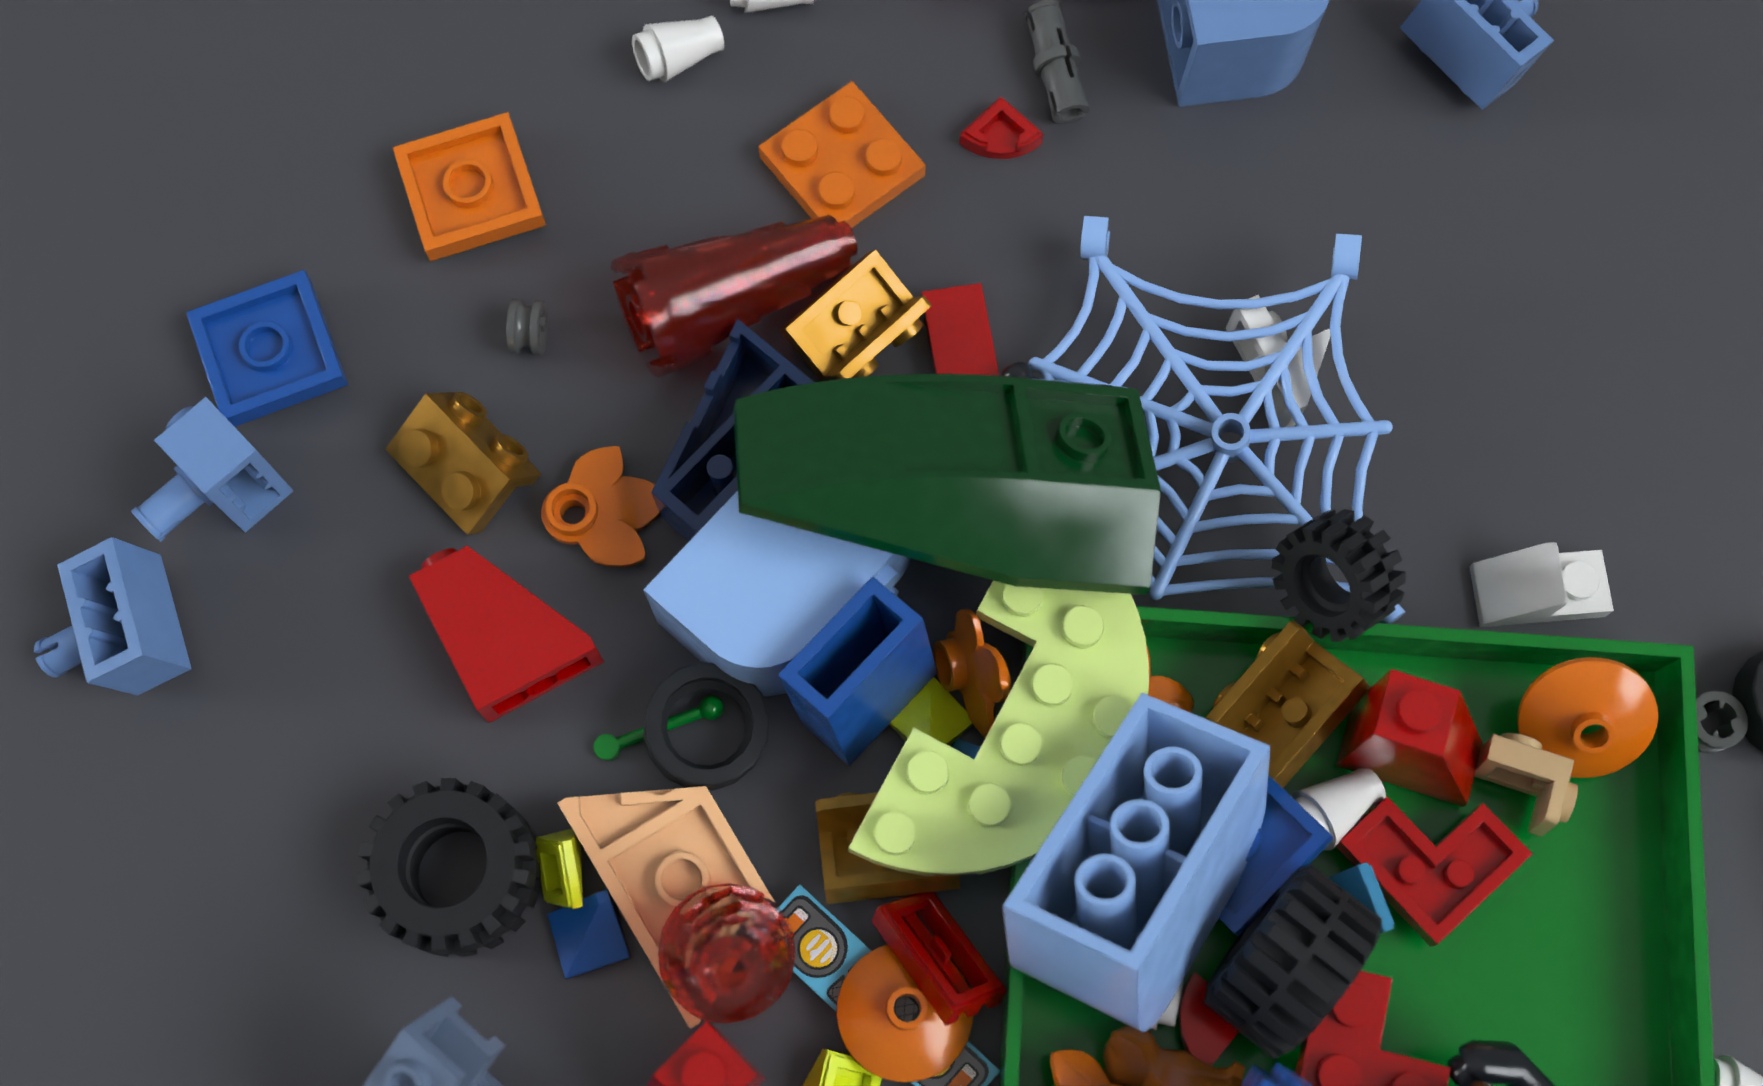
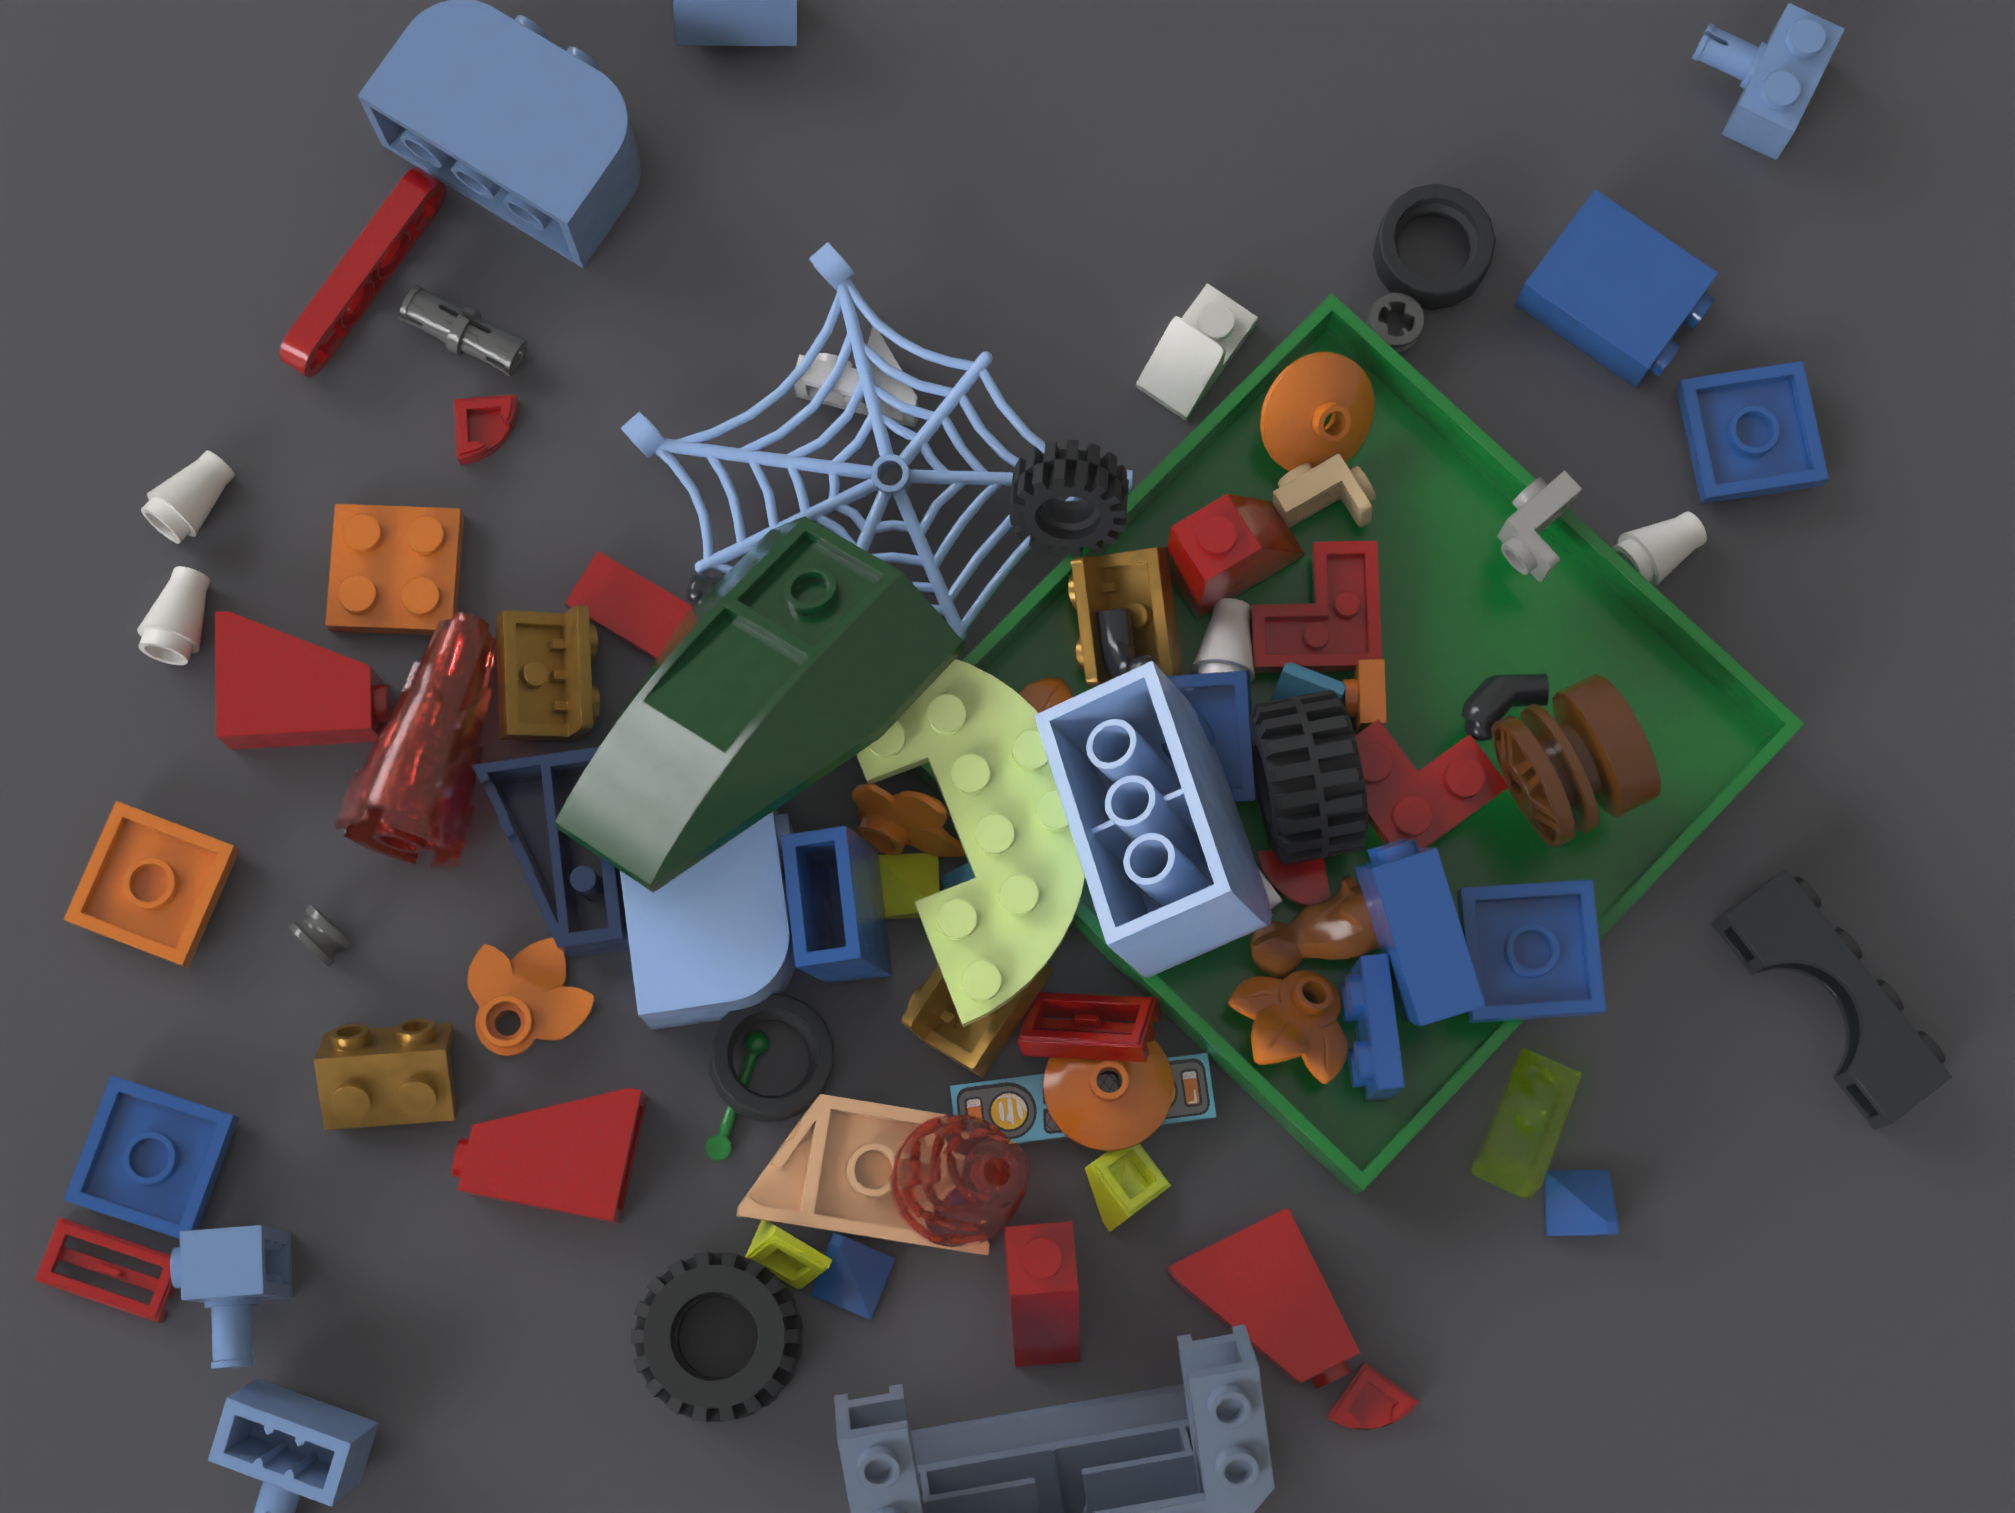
camera: 50 degrees left, 5 degrees up
(136, 383) = (56, 1251): none -> red tile
(687, 158) = (291, 691): none -> red slope
(1263, 711) = (1118, 643): none -> black arm
(1402, 951) = (1366, 694): none -> orange plate
(1685, 963) = (1537, 509): none -> light grey bracket

